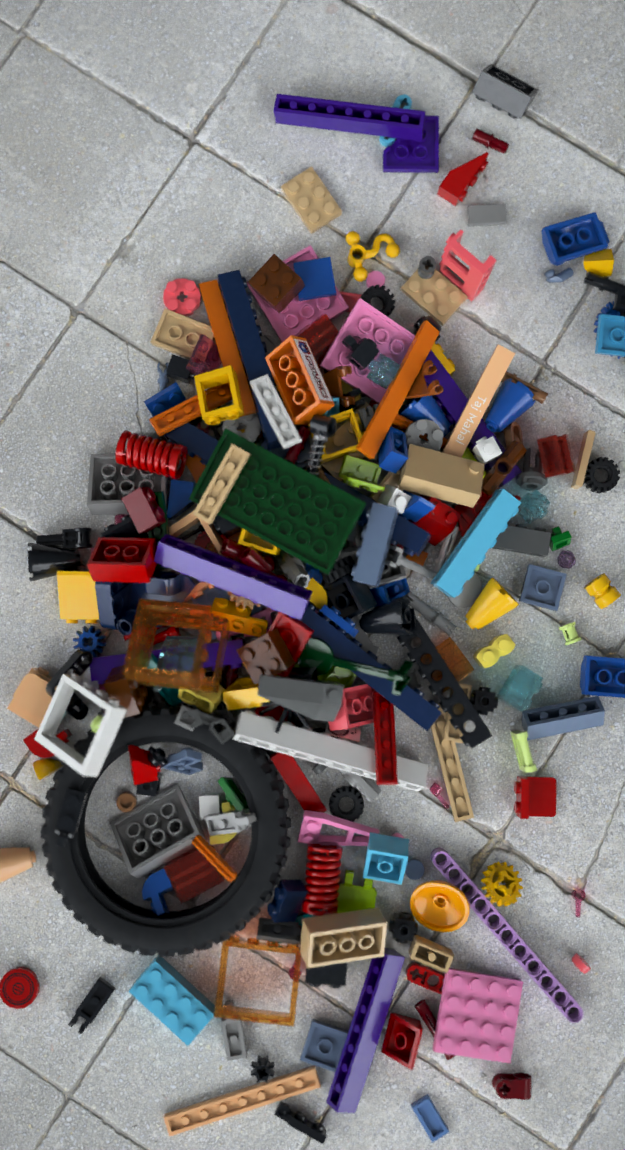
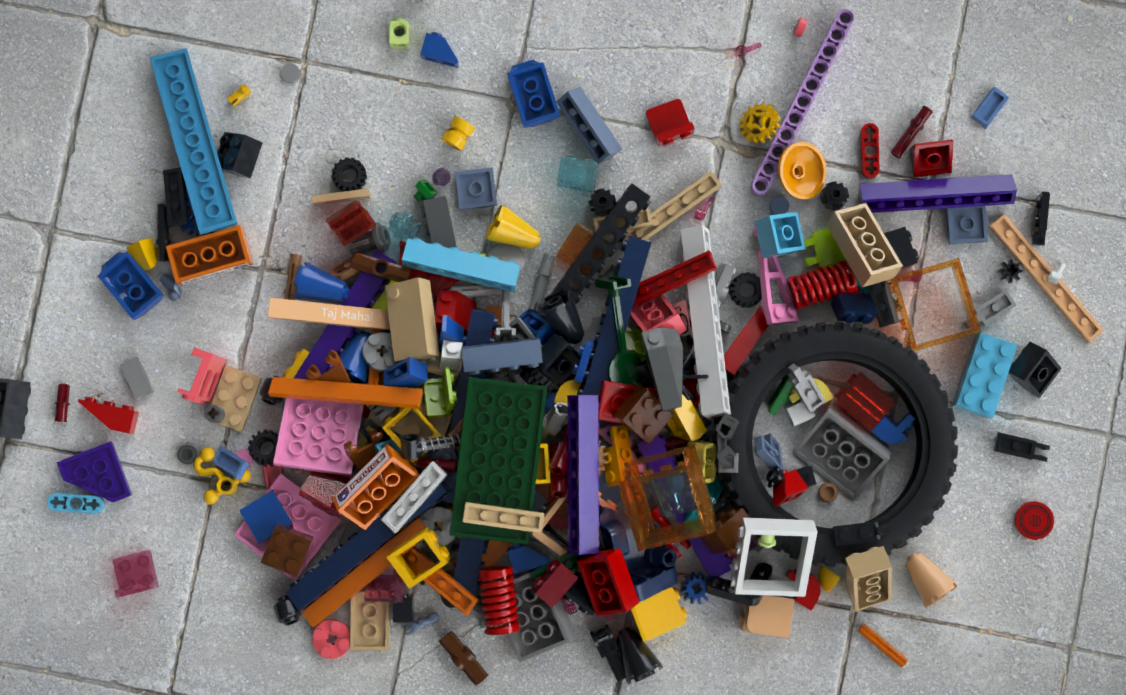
camera: 110 degrees left, 0 degrees up
(26, 807) = (869, 578): none -> tan brick
(115, 406) = (463, 658): none -> reddish brown piece
(159, 1051) = (1034, 369): none -> black slope
(165, 399) = (439, 612): blue plate -> none
(214, 858) = (842, 387): orange axle -> none
(221, 264) = (286, 611): none -> black head
(239, 1111) = (1055, 276): none -> white hand
(310, 147) = (135, 573): none -> clear pink bracket
(311, 200) = (186, 553): tan plate -> none
(349, 117) = (93, 547): dark purple brick -> none
(361, 352) = (325, 440): black brick -> none
(376, 266) = (230, 462): none -> medium blue tile
(382, 370) = (334, 414): clear light blue brick -> none
(400, 233) = (187, 454): none -> dark grey tile
(431, 953) = (846, 162): tan brick -> none
(477, 1015) = (883, 100): bright pink plate -> none
(486, 450) = (370, 288): white brick -> none
(490, 654) = (557, 212): light yellow brick -> none
(515, 1086) = (930, 42): dark red piece -> none
(523, 751) = (633, 149): yellowish green plate -> none
(570, 633) = (508, 147): yellowish green bush -> none
(575, 319) = (209, 255): none -> orange brick

